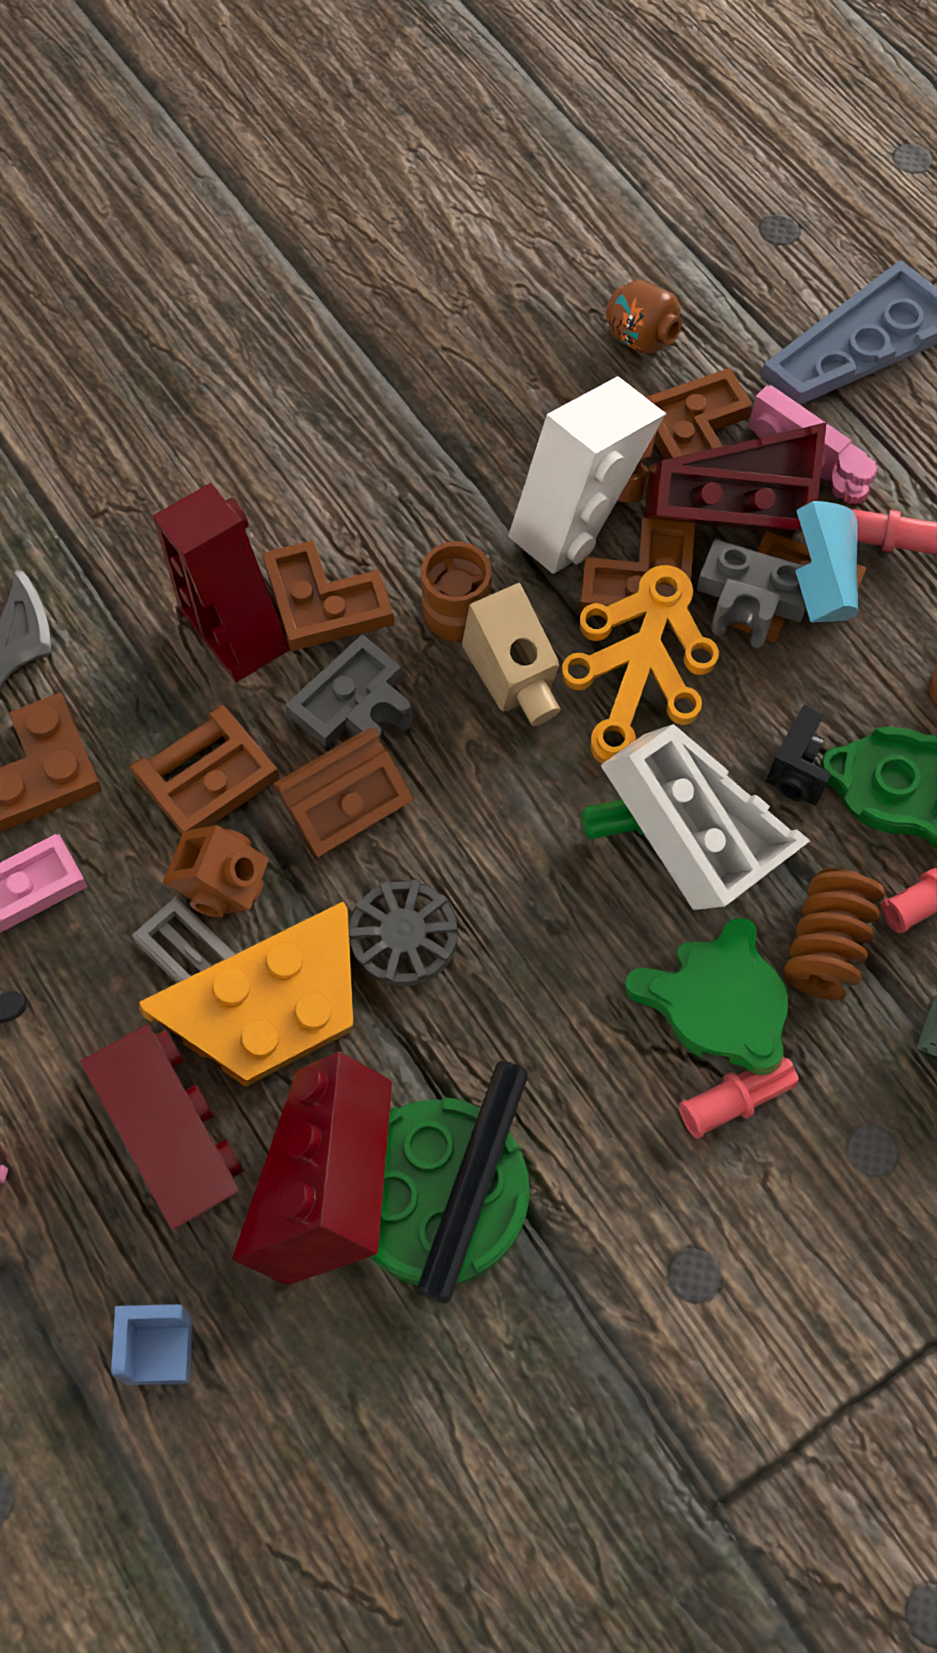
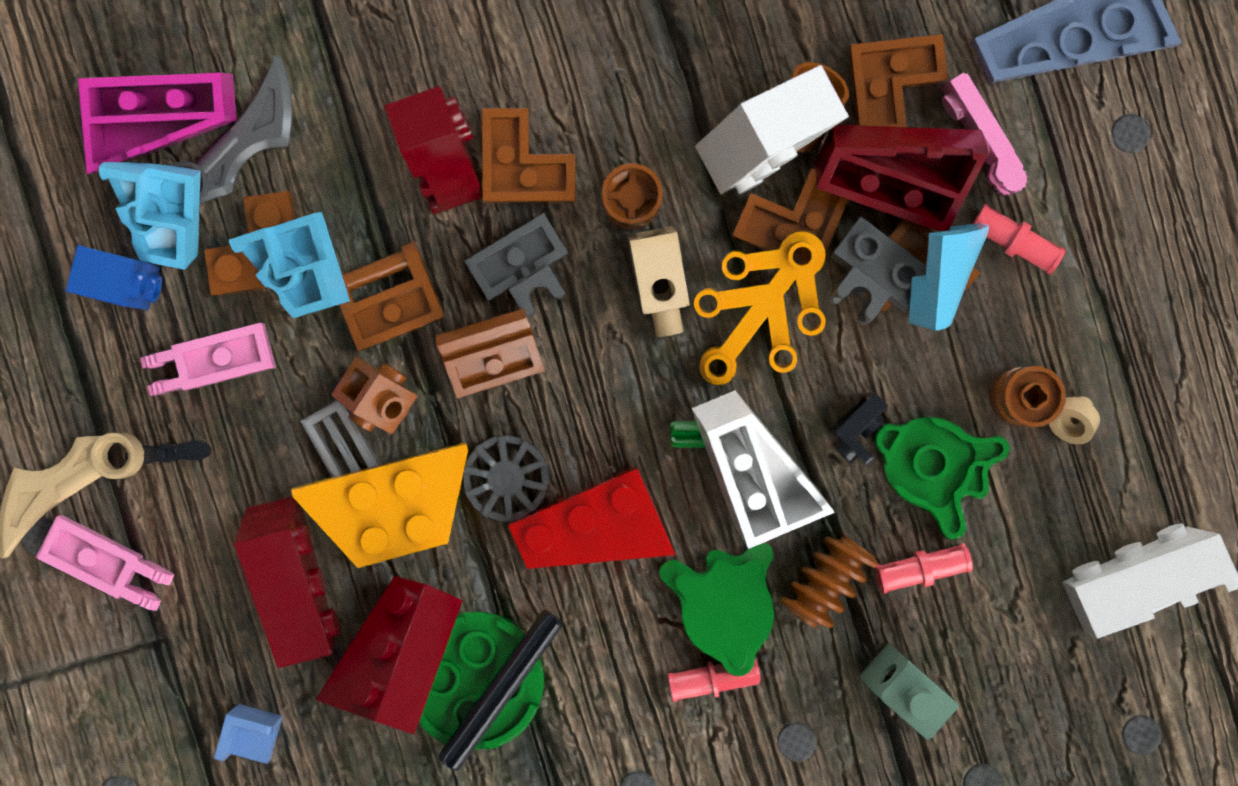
camera: 15 degrees right, 25 degrees up
(86, 752) = (296, 263): none -> medium azure slope
(527, 945) = (594, 526): none -> red wedge

